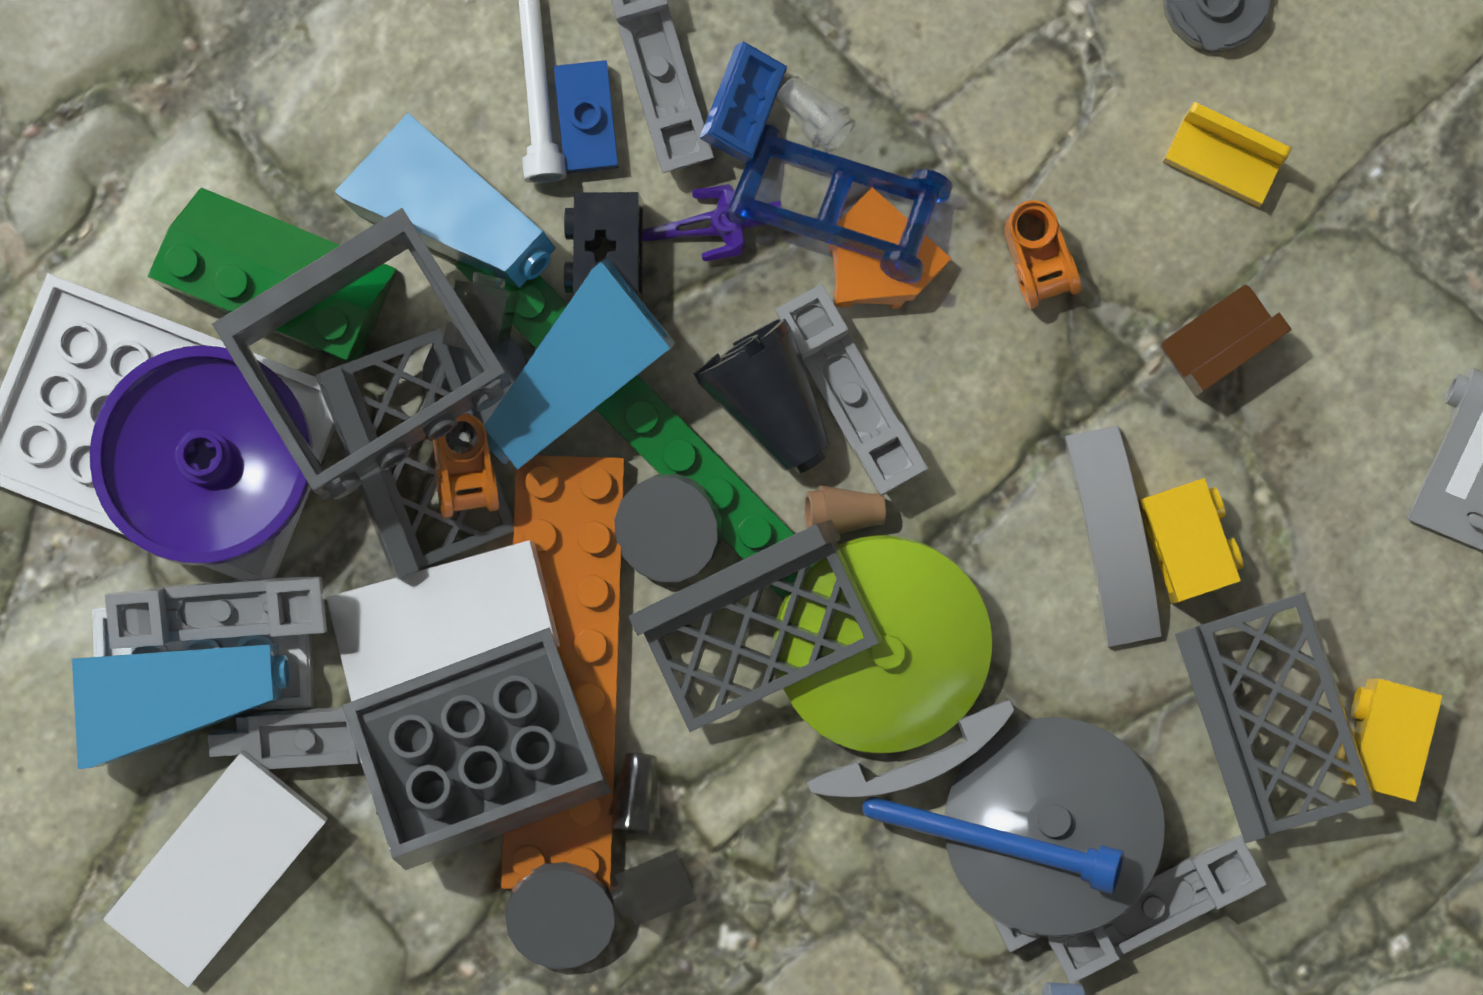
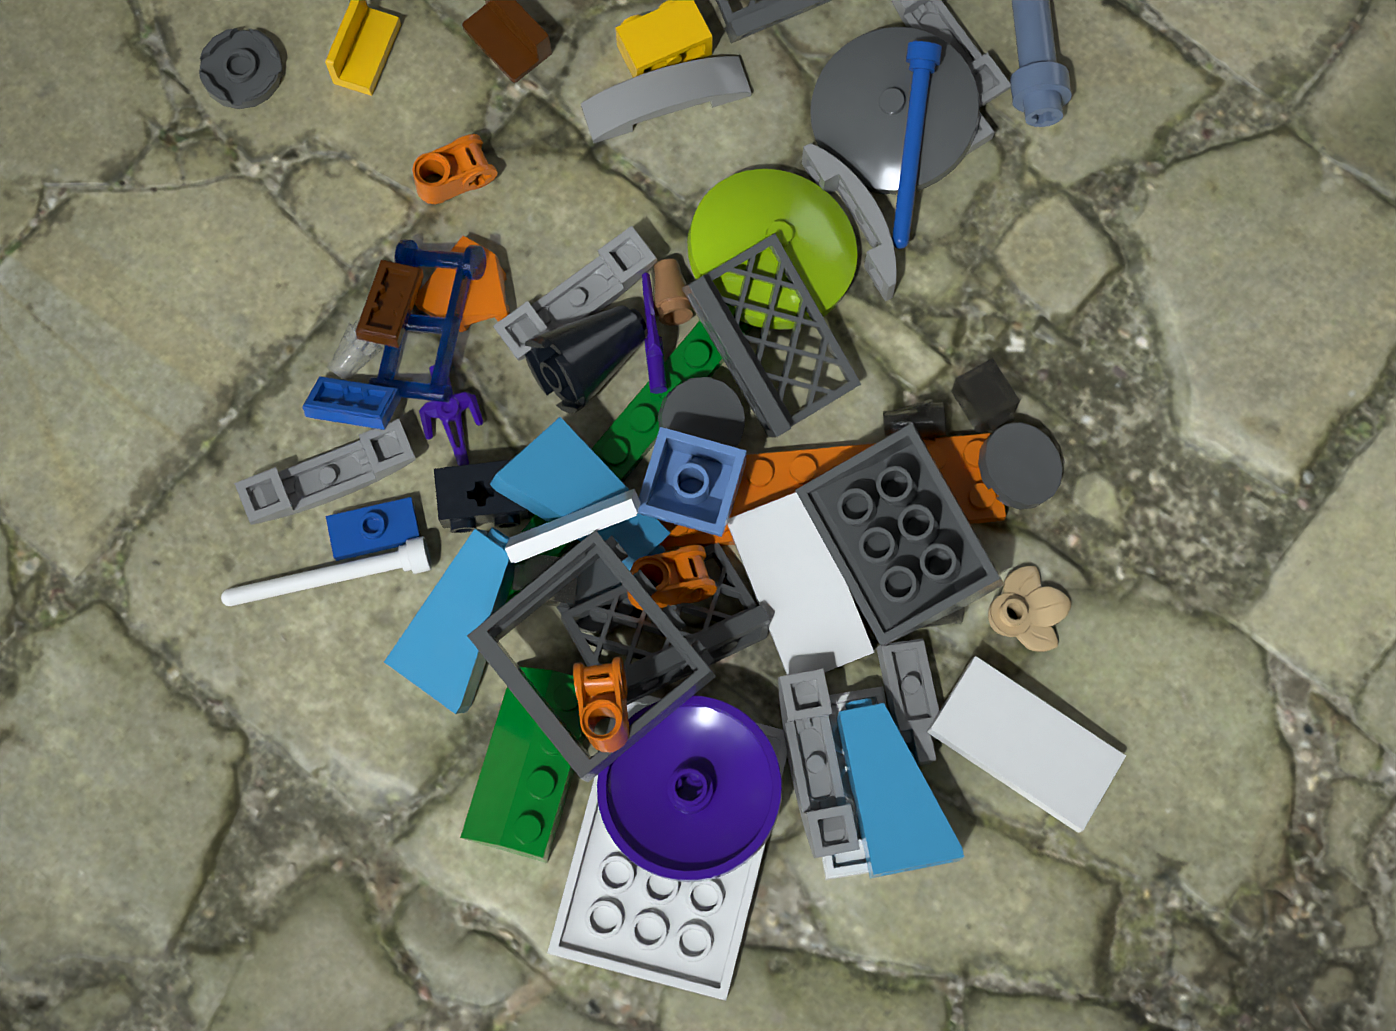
camera: 100 degrees left, 10 degrees down
(293, 355) = (602, 695): none -> orange piece
(383, 907) = (1035, 609): none -> tan plate
(523, 348) = (573, 526): none -> white tile
(569, 500) = (692, 481): none -> medium blue slope
(773, 479) = (653, 342): none -> dark purple piece
(859, 157) = (389, 303): none -> reddish brown plate

